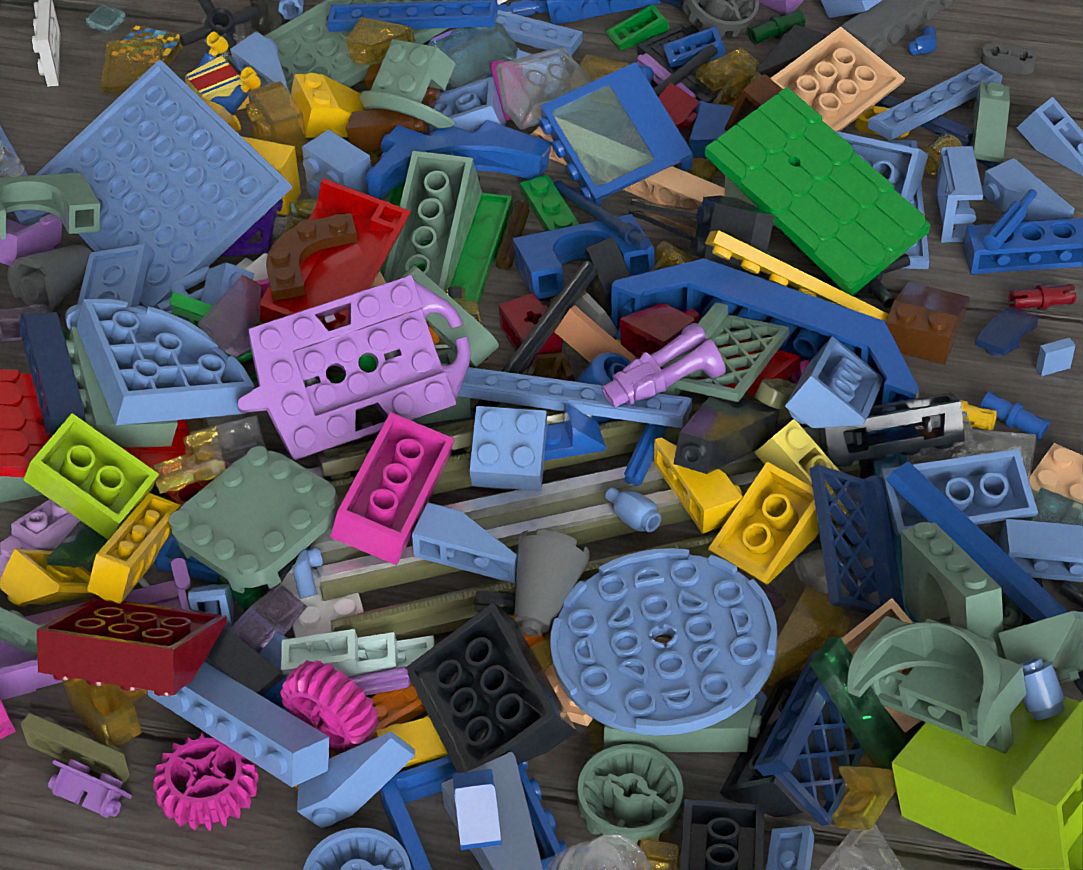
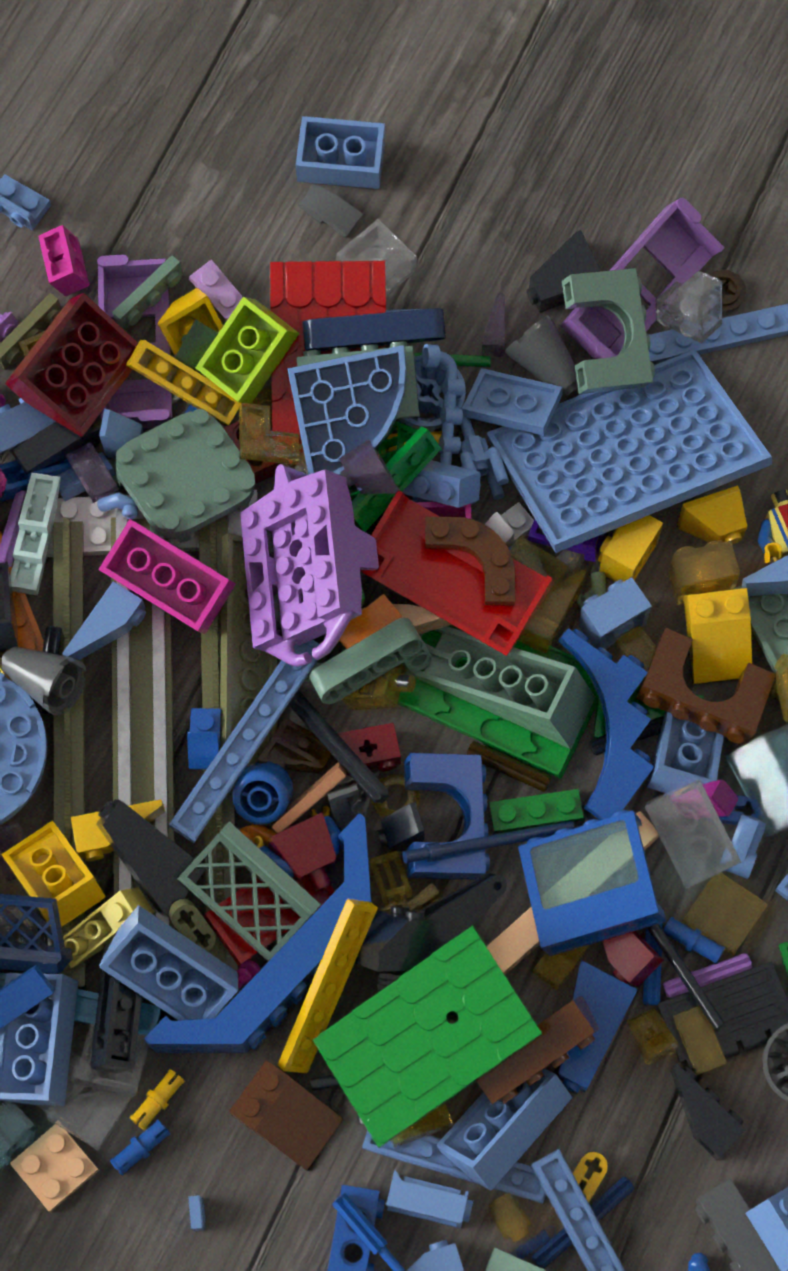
camera: 105 degrees right, 25 degrees up
(404, 81) = (700, 686): sand green piece -> none
(508, 448) = (186, 677): medium blue brick -> none
(634, 509) = (106, 770): medium blue plant -> none
(643, 454) = (168, 796): blue axle -> none
(645, 378) = (215, 802): medium lavender piece -> none
(695, 43) = (734, 1033): blue slope -> none
(776, 26) = (768, 1120): dark green pin -> none
(839, 79) = (636, 1138): light nougat slope -> none
(1005, 331) = (244, 1182): dark blue slope -> none
(1042, 297) = (280, 1236): dark red pin -> none

